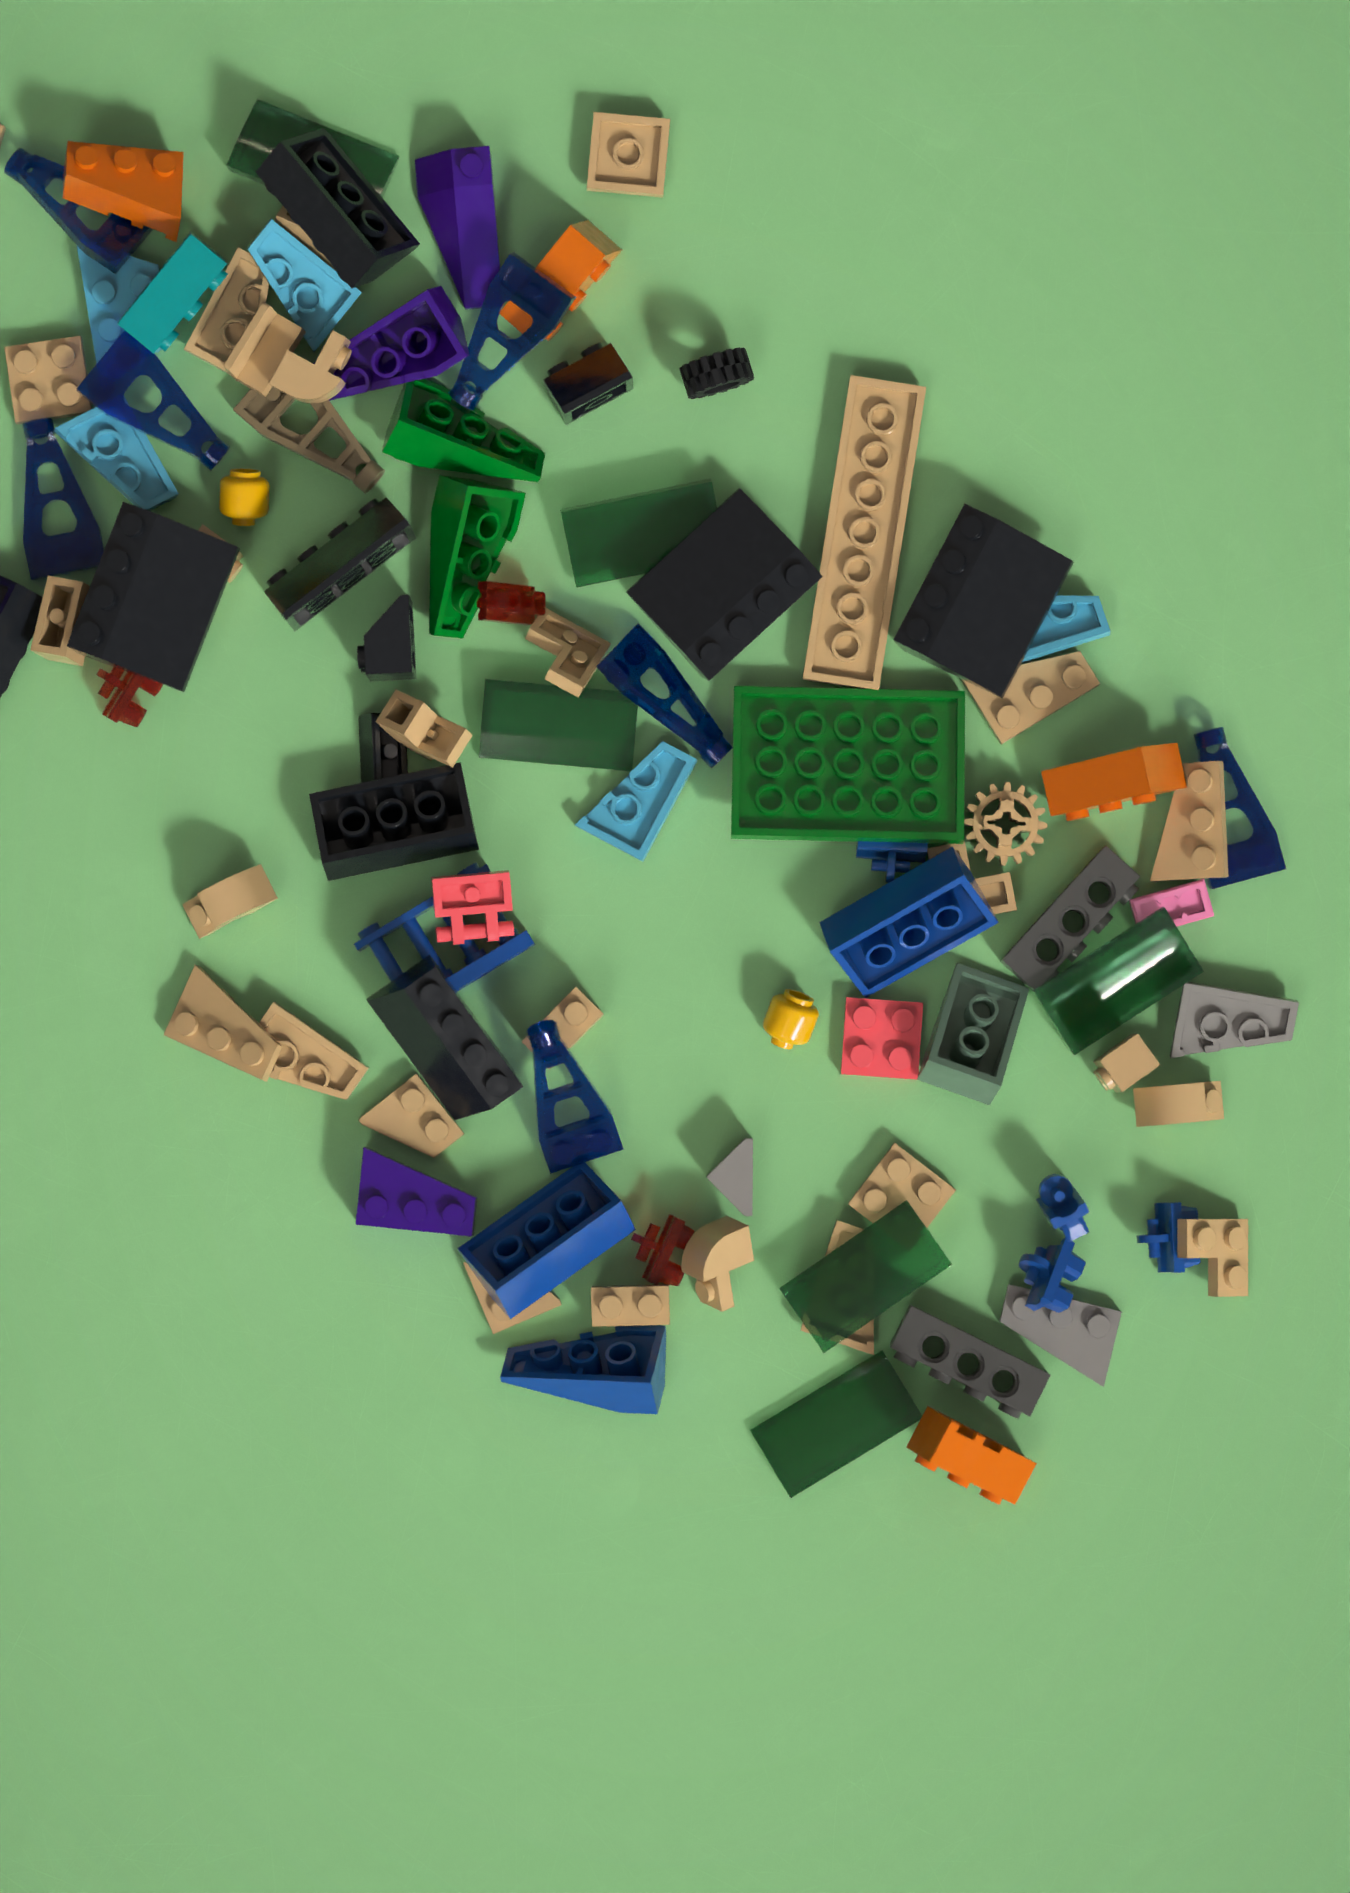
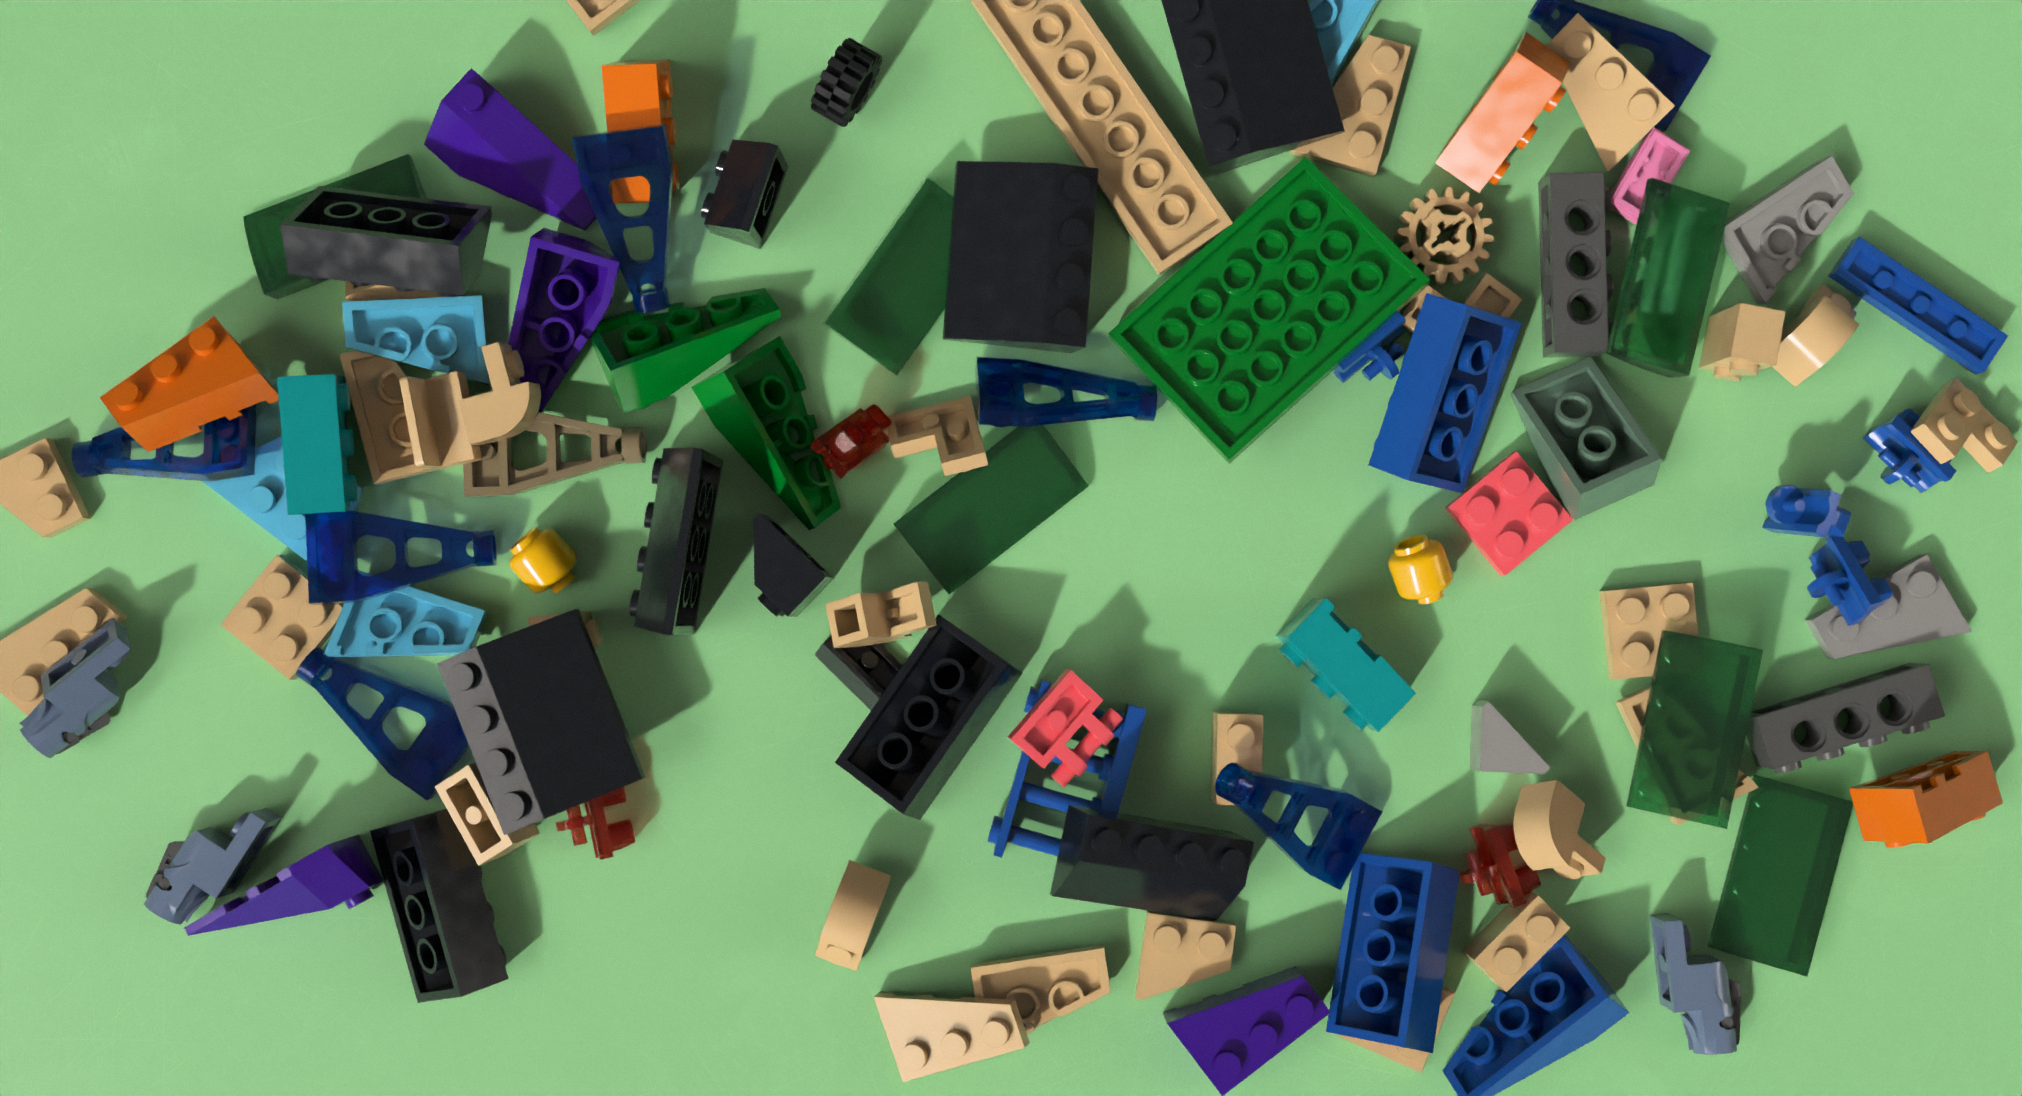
camera: 45 degrees left, 0 degrees up
(641, 803) = (1121, 505): medium azure wing -> none
(684, 1033) = (1344, 665): none -> teal wedge
(717, 1445) = (1696, 987): none -> sand blue plate
(1266, 1150) = (1918, 305): none -> blue plate

